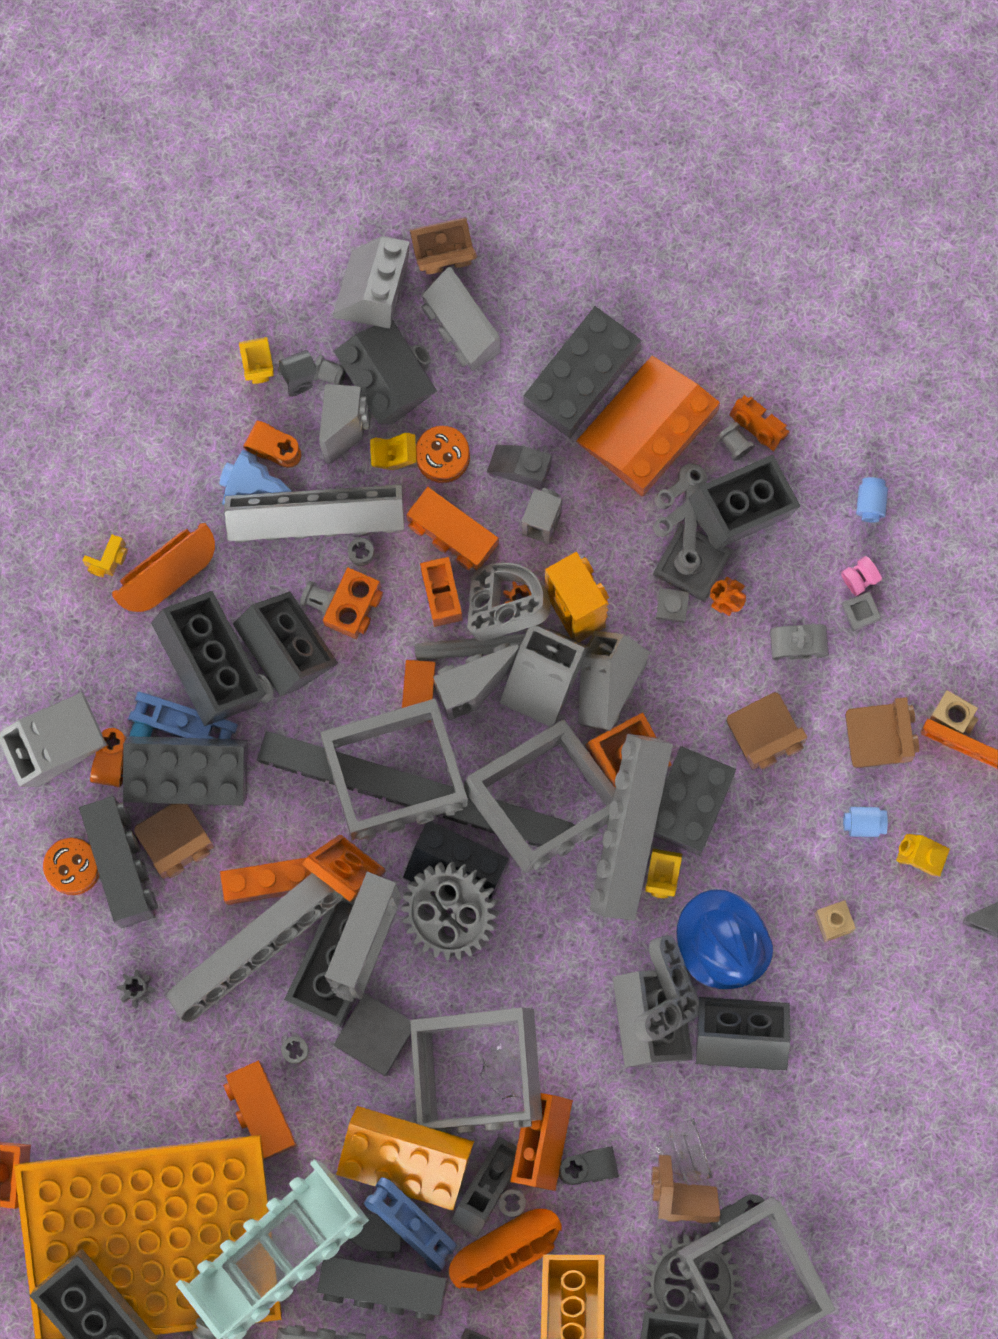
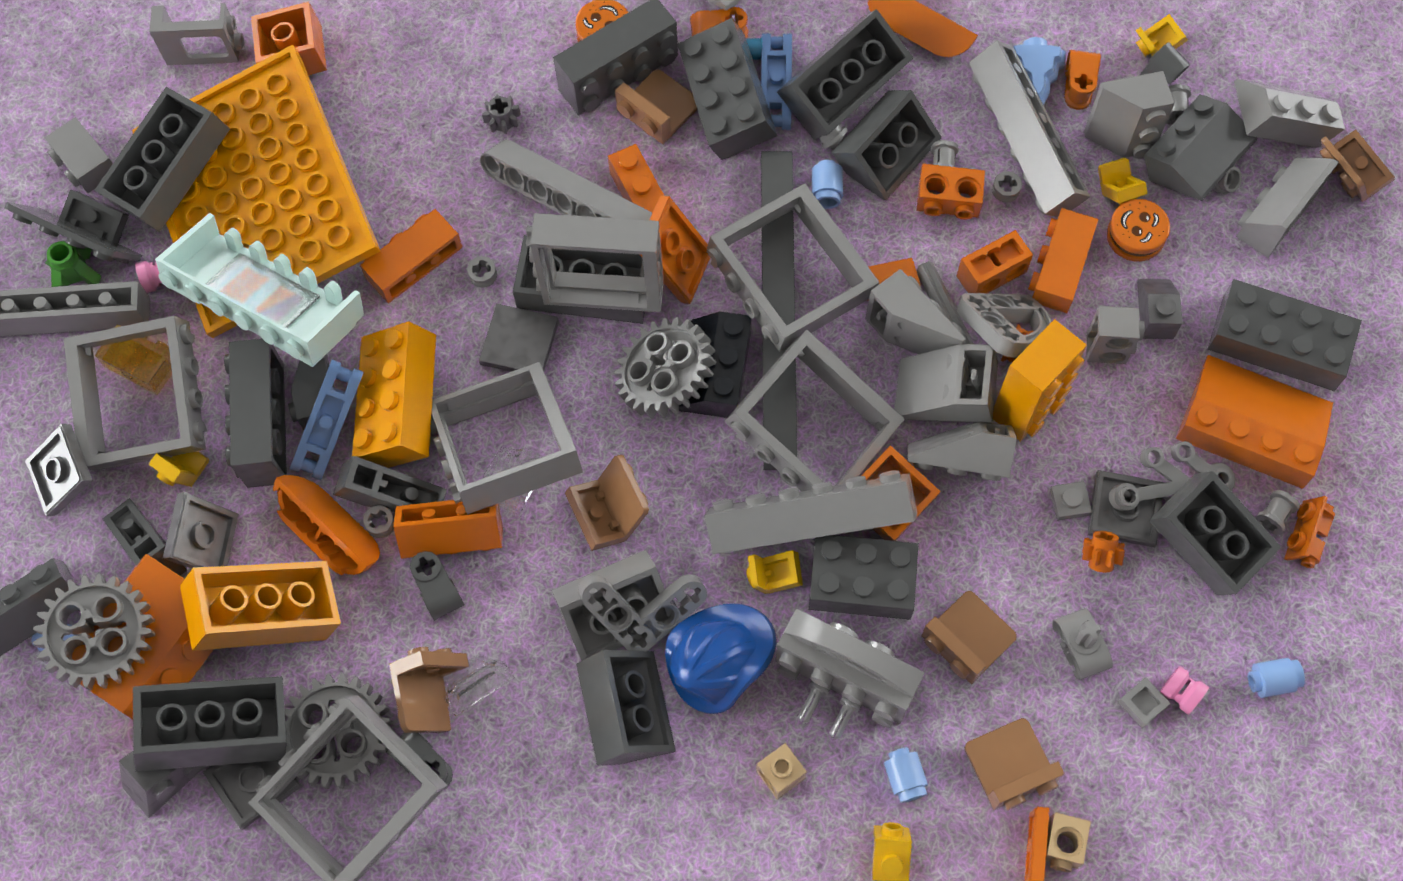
camera: 70 degrees right, 10 degrees down
(308, 710) = (827, 183): none -> light blue brick
(563, 996) = (609, 506): none -> medium nougat bracket
(775, 829) = (841, 662): none -> light grey piece

